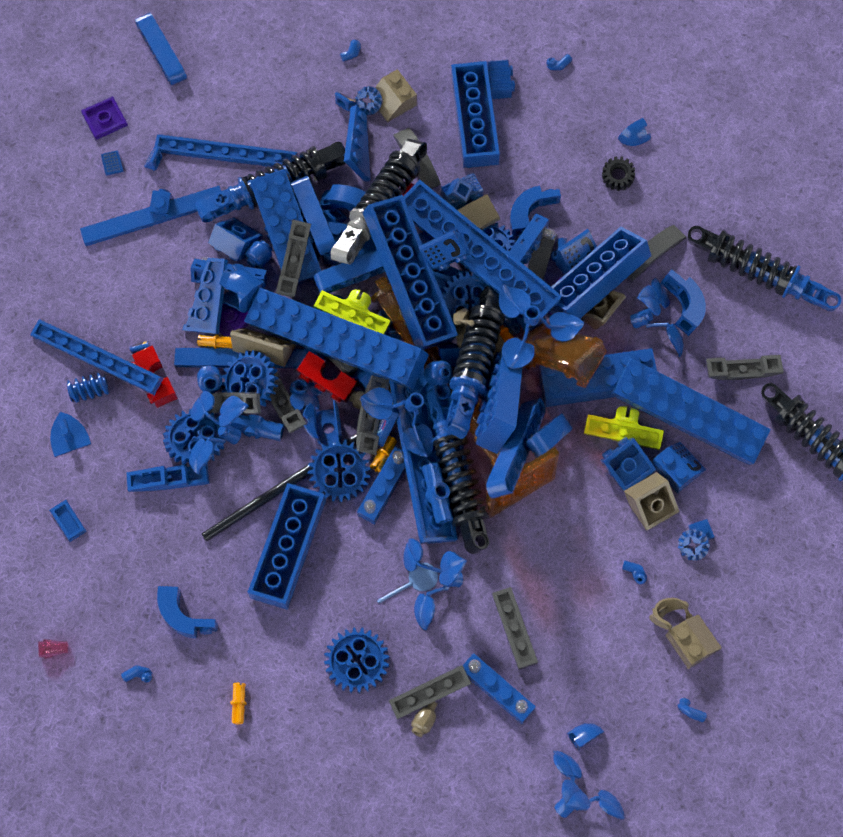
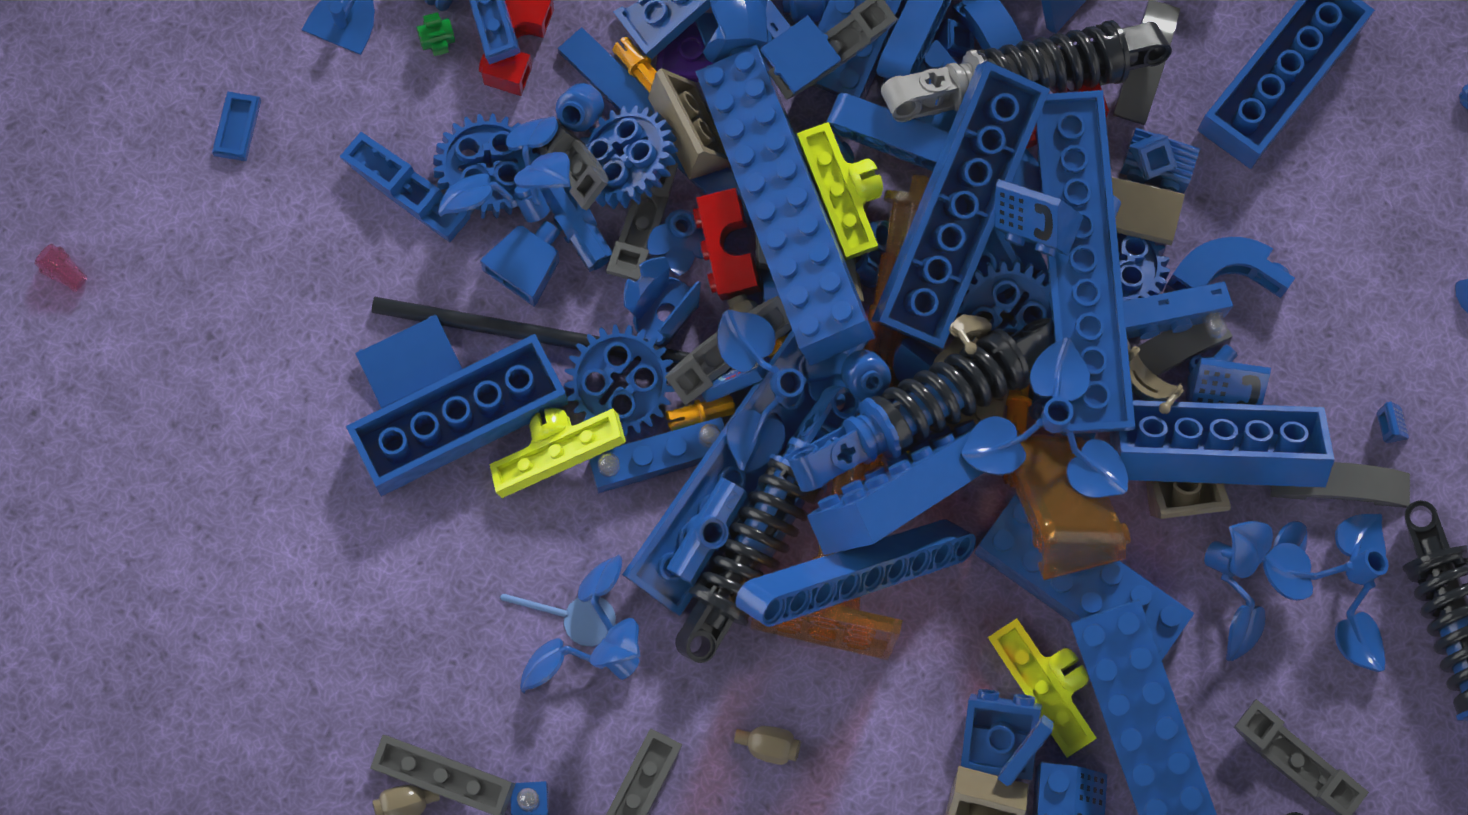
camera: 40 degrees right, 5 degrees up
(117, 405) = (435, 34): none -> green gear
(137, 671) = (129, 395): blue arm -> none
(169, 606) = (237, 364): blue arch -> none
(238, 703) = (203, 555): light orange axle -> none
(243, 545) = (408, 361): none -> blue piece
(249, 461) = (524, 261): none -> blue torso
(283, 273) = (800, 54): none -> blue piece
(341, 521) = (556, 448): none -> neon yellow plate
(342, 669) = (365, 640): blue gear -> none
(500, 79) = (1372, 51): blue brick -> none
(543, 554) = (770, 744): none -> dark tan plant
(549, 435) = (924, 596): blue beam -> none
(552, 278) = (1161, 390): none -> dark tan helmet
(618, 164) = (1417, 318): black tyre -> none
(644, 458) = (1026, 751): none -> blue tile
(648, 212) = (1392, 423): none -> blue slope
(691, 300) = (1321, 610): blue arch -> none
(694, 271) = (1363, 541): none -> blue plant

